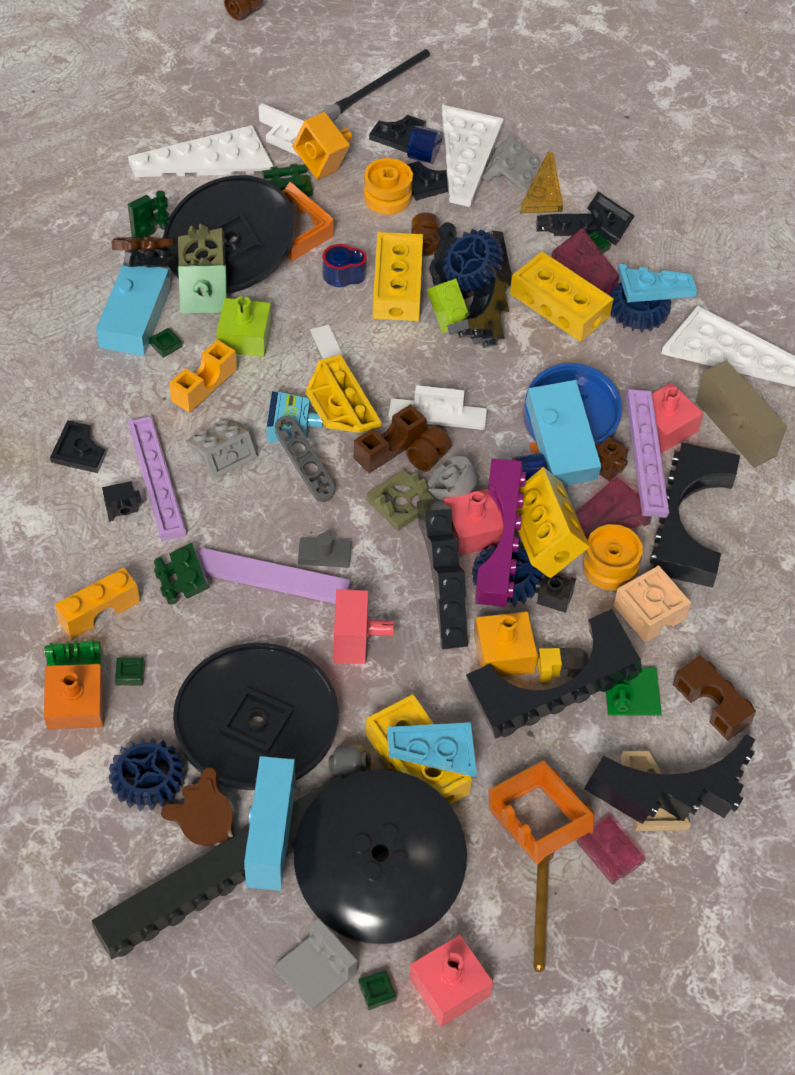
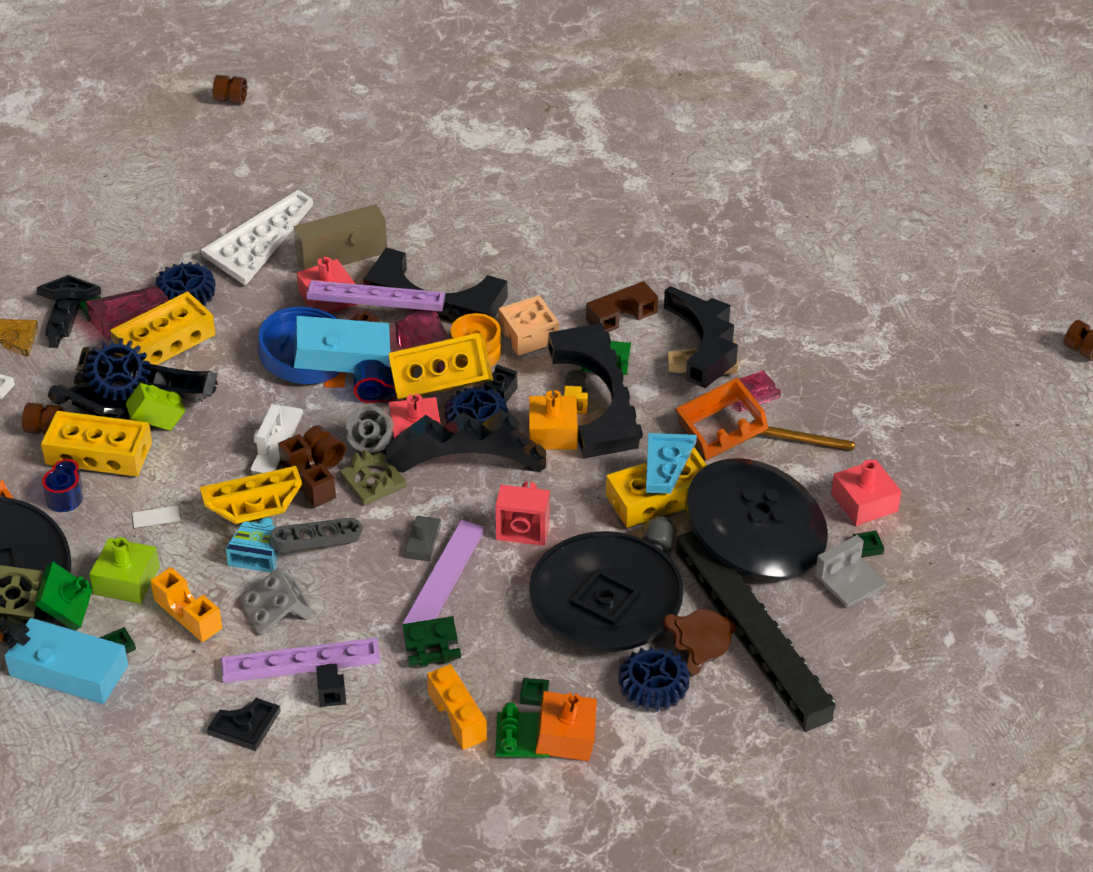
camera: 80 degrees left, 10 degrees down
(270, 823) = (734, 569): medium azure brick -> none
(494, 575) = (397, 382): magenta arch -> none
(649, 286) = (178, 265): medium azure wing -> none

